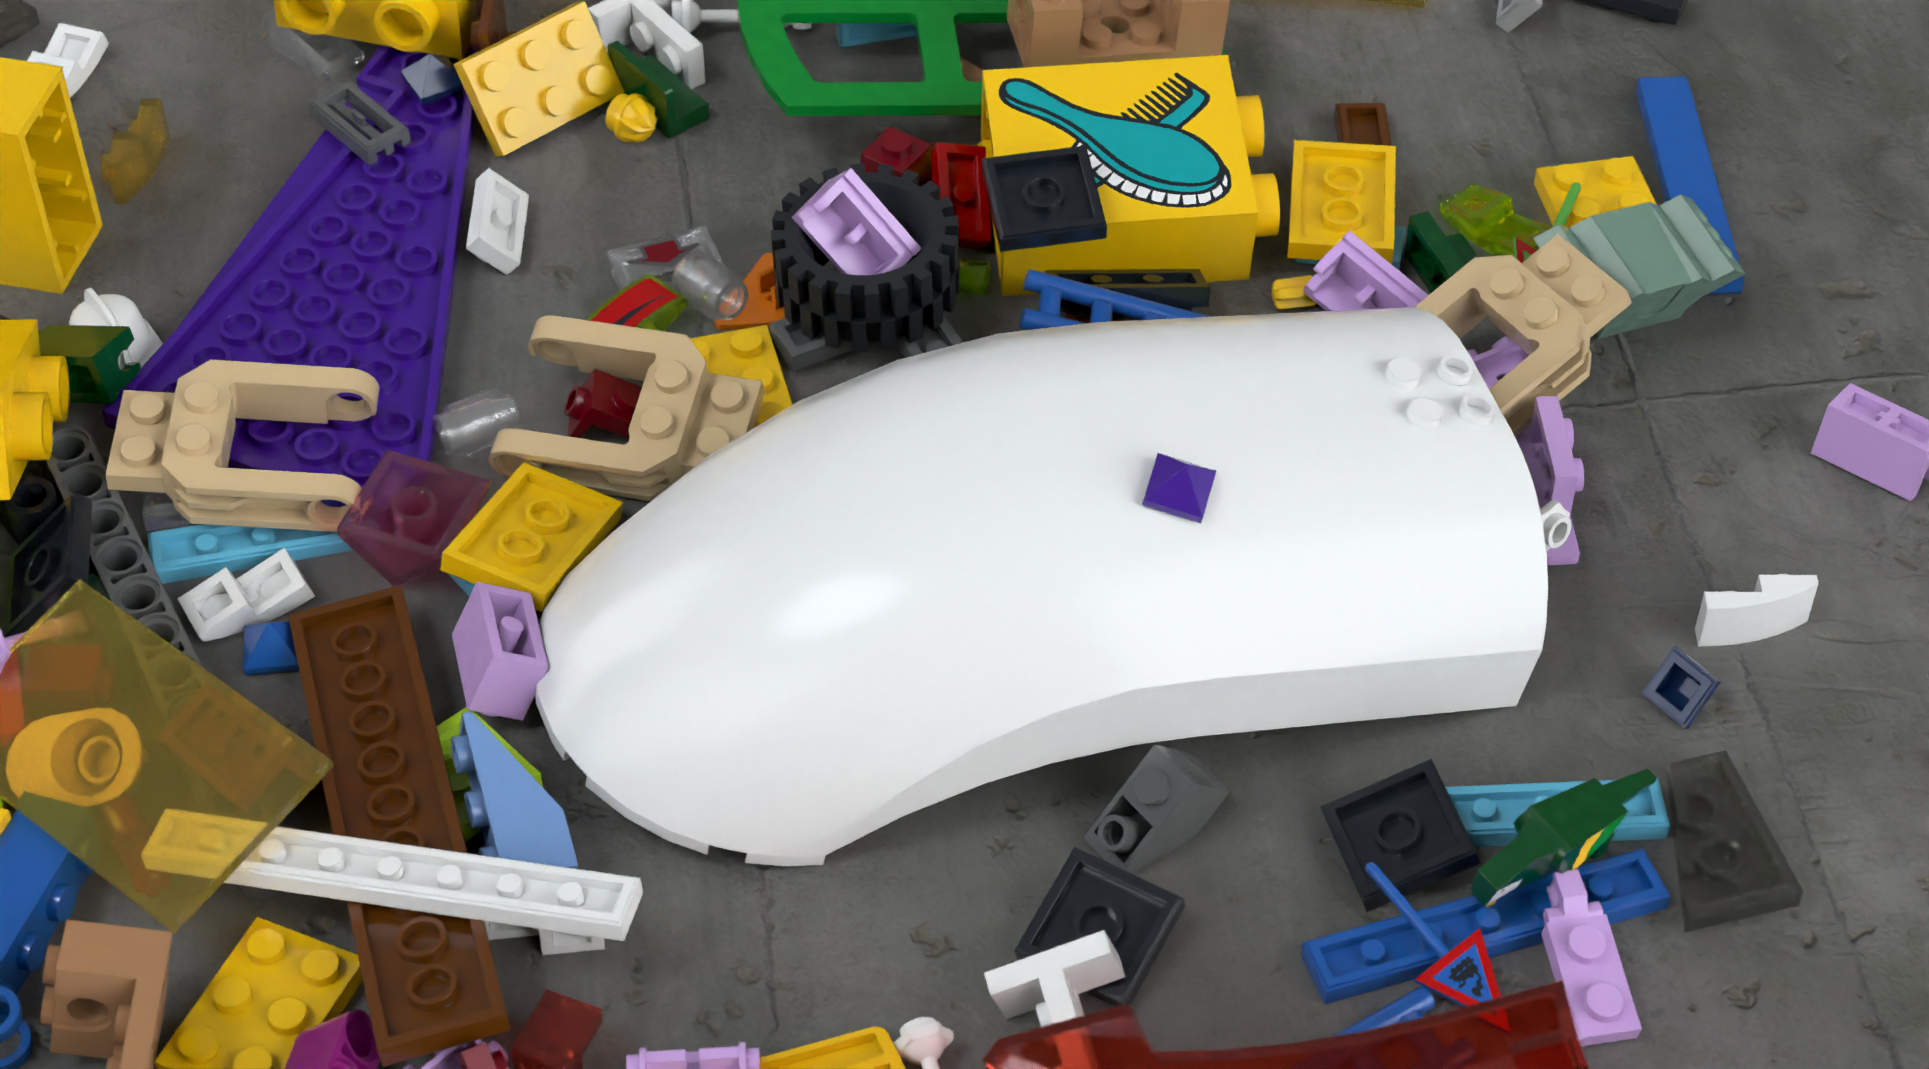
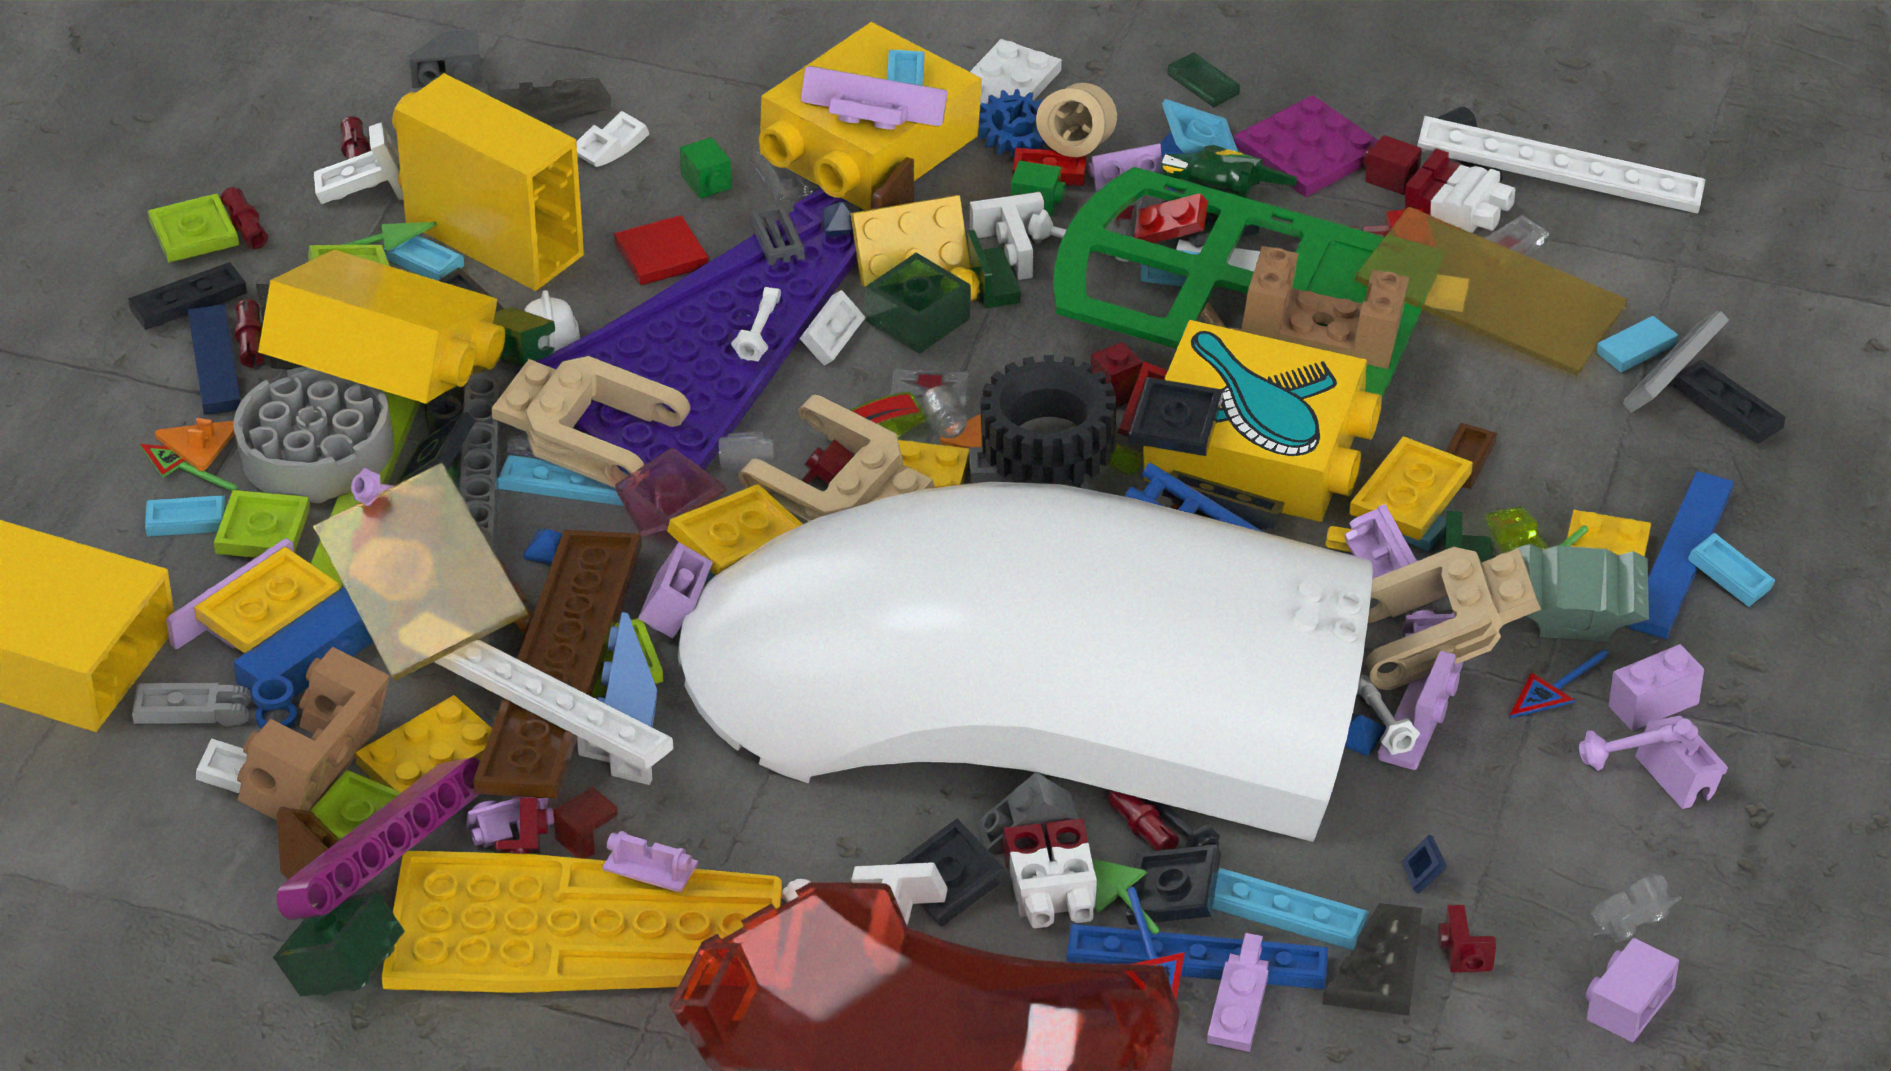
camera: 25 degrees right, 5 degrees down
(136, 153) = (628, 211): clear yellow slope -> none
(207, 188) = (660, 250): none -> red tile
(212, 64) = (705, 167): none -> green brick
(264, 593) = (534, 512): white slope -> none
(409, 275) = (750, 344): none -> white piece
(594, 155) = (917, 302): none -> clear green brick
(855, 228) = (1042, 398): lavender hinge -> none
(1179, 488) = (1099, 607): dark purple slope -> none
(1236, 877) = (1051, 874): none -> white hips
(1303, 758) = (1143, 821): none -> dark red pin
(1317, 859) = (1113, 882): none -> bright green piece
(1389, 758) = (1198, 837): none -> black piece
(1559, 835) = (1264, 912): dark green animal -> none
(1654, 415) = (1541, 695): none -> piece
(1743, 617) = (1517, 839): white slope -> none
(1760, 183) = (1731, 569): none -> medium azure tile
(1774, 461) = (1595, 749): none -> lavender piece
(1788, 357) = (1656, 687): none -> lavender brick
(1798, 780) = (1465, 952): none -> dark red bracket

